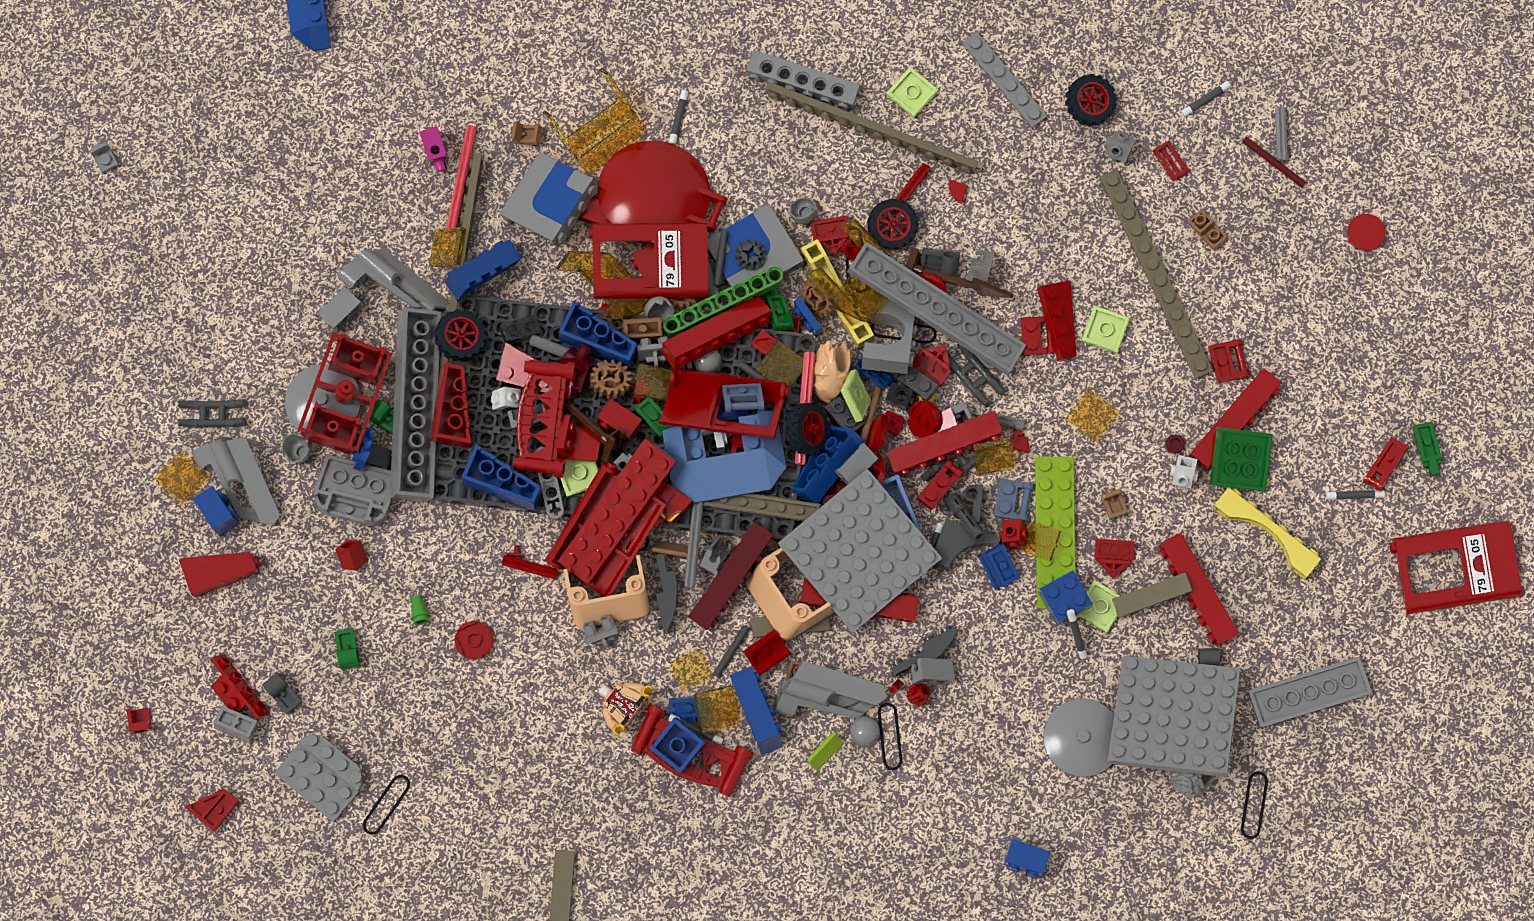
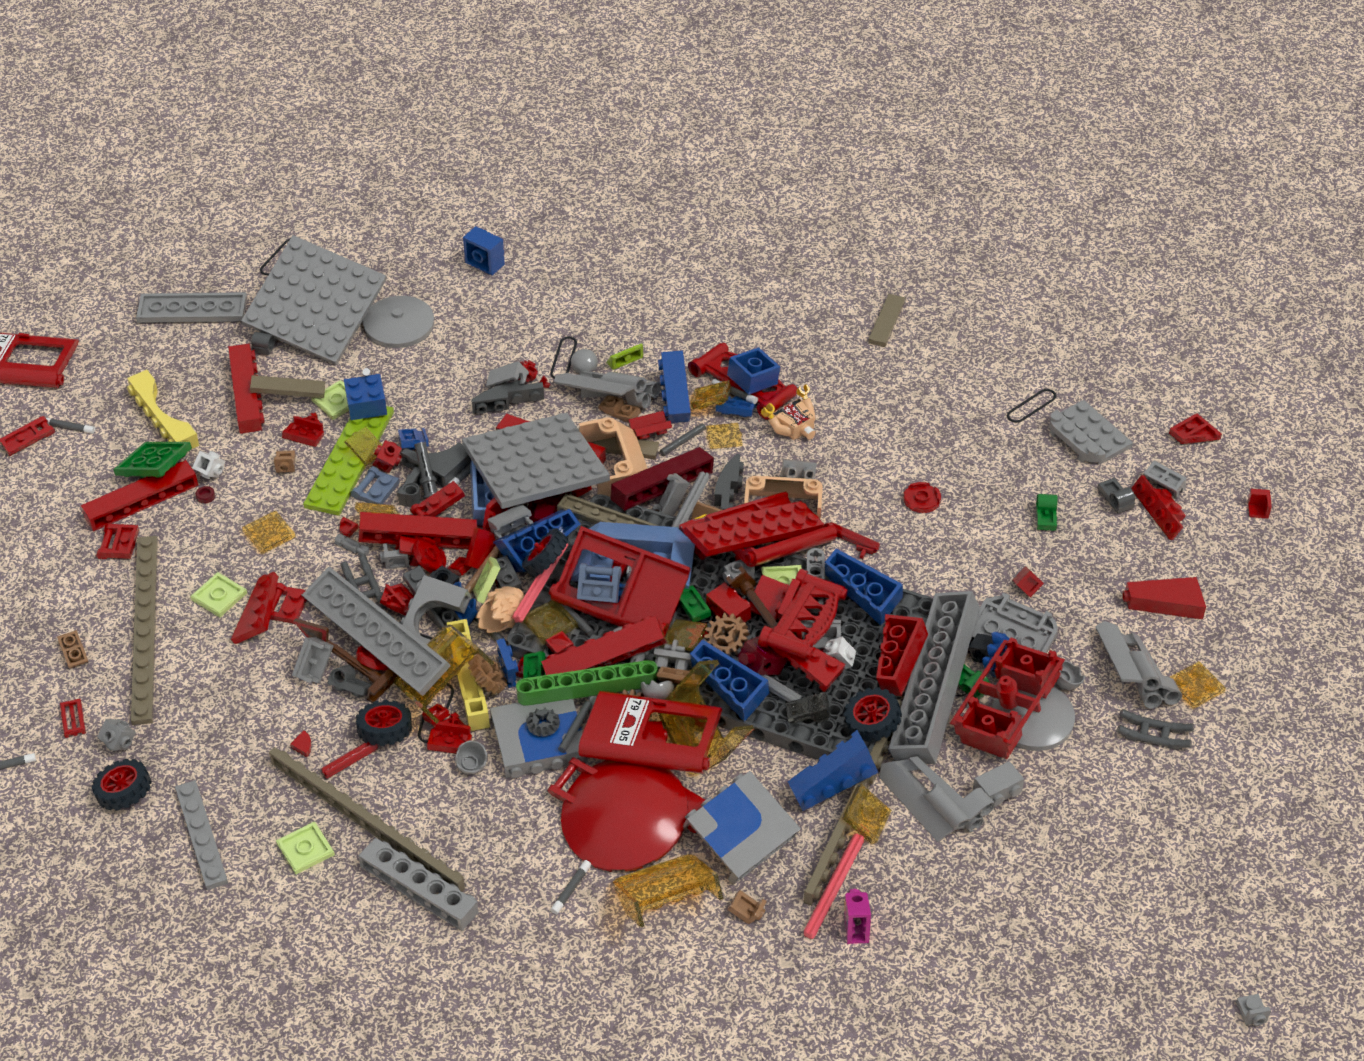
camera: 170 degrees left, 30 degrees down
(216, 511) = (1162, 635): blue brick -> none
(419, 611) = (969, 525): bright green cone -> none

